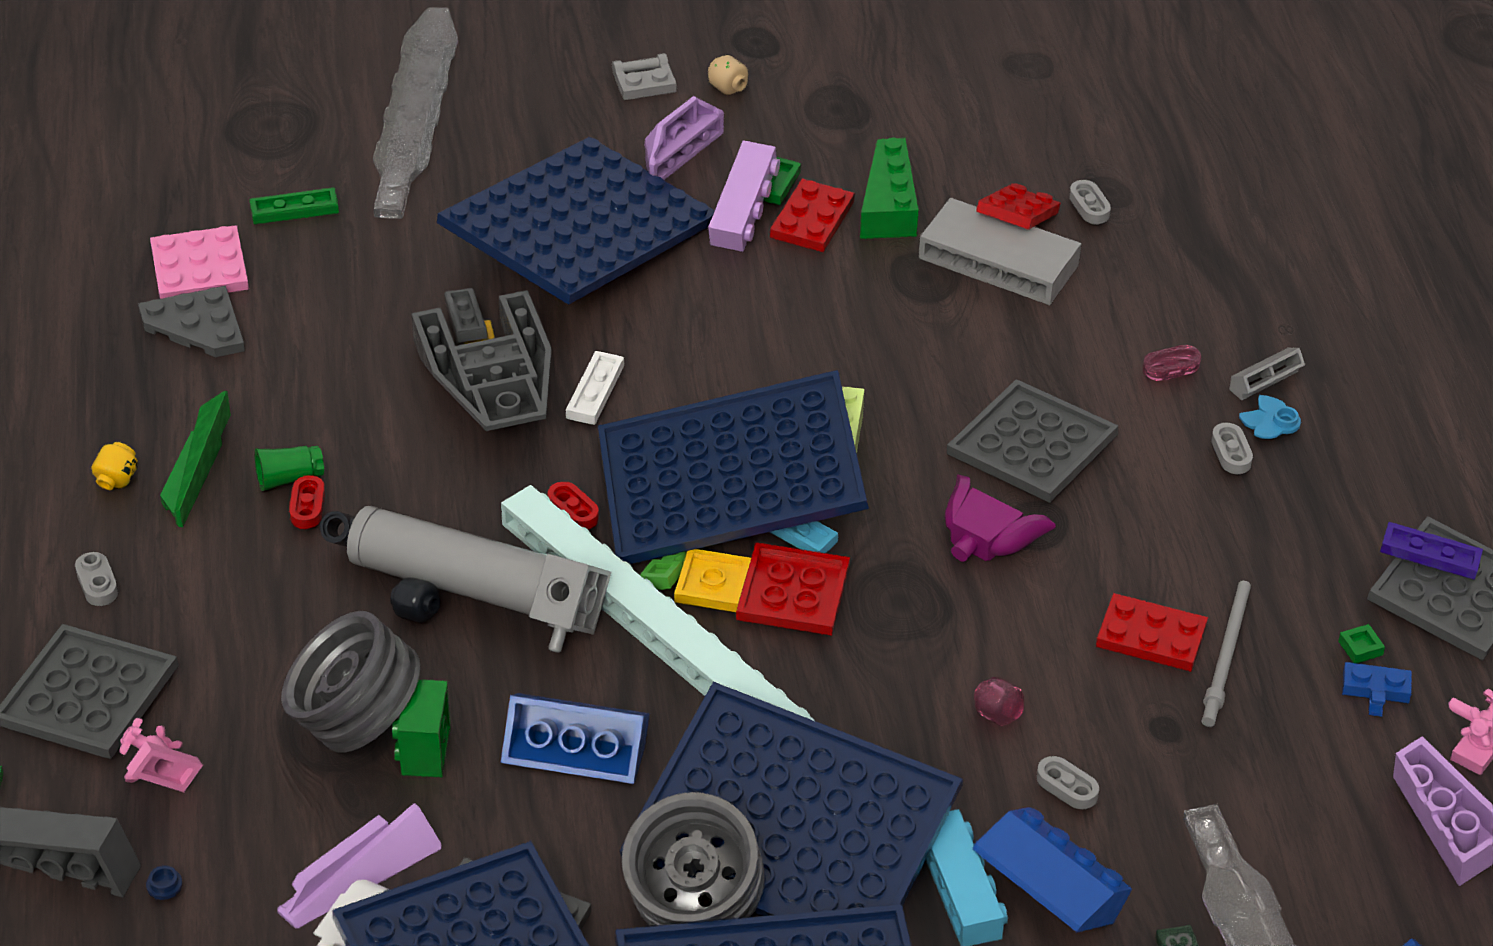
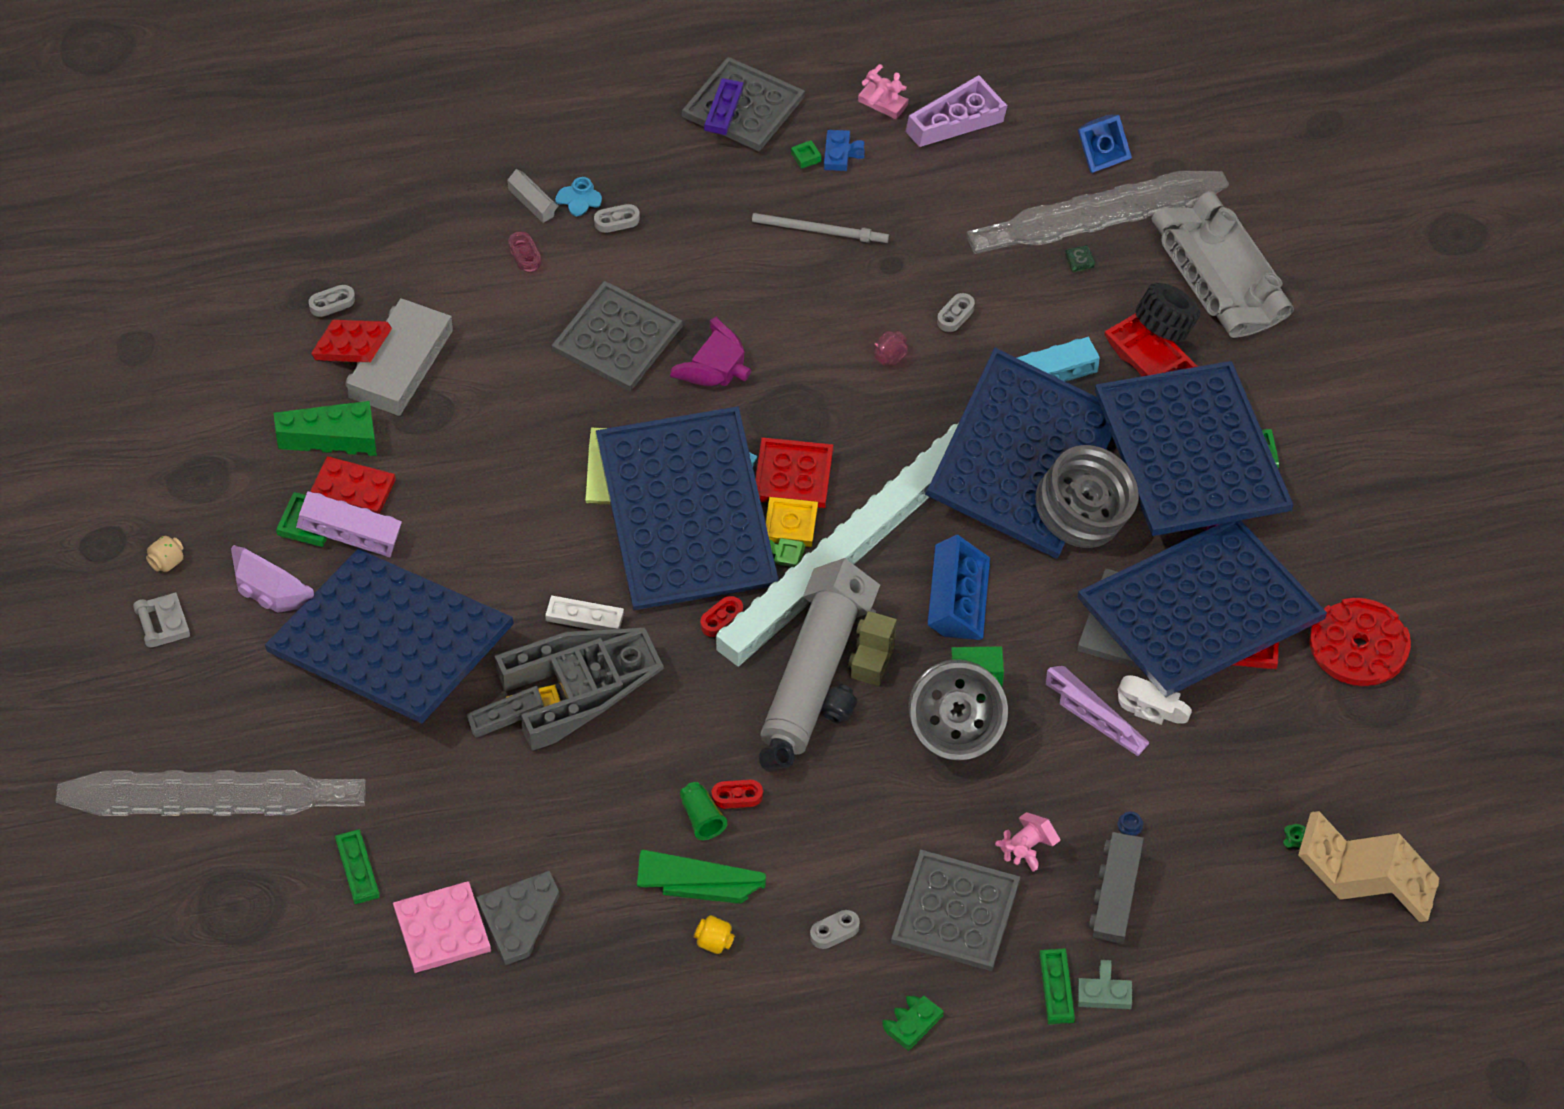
camera: 95 degrees left, 10 degrees up
(488, 635) = (874, 647): none -> olive brick
(1054, 869) = (1043, 312): blue slope -> none
(1152, 632) = (805, 269): red plate -> none

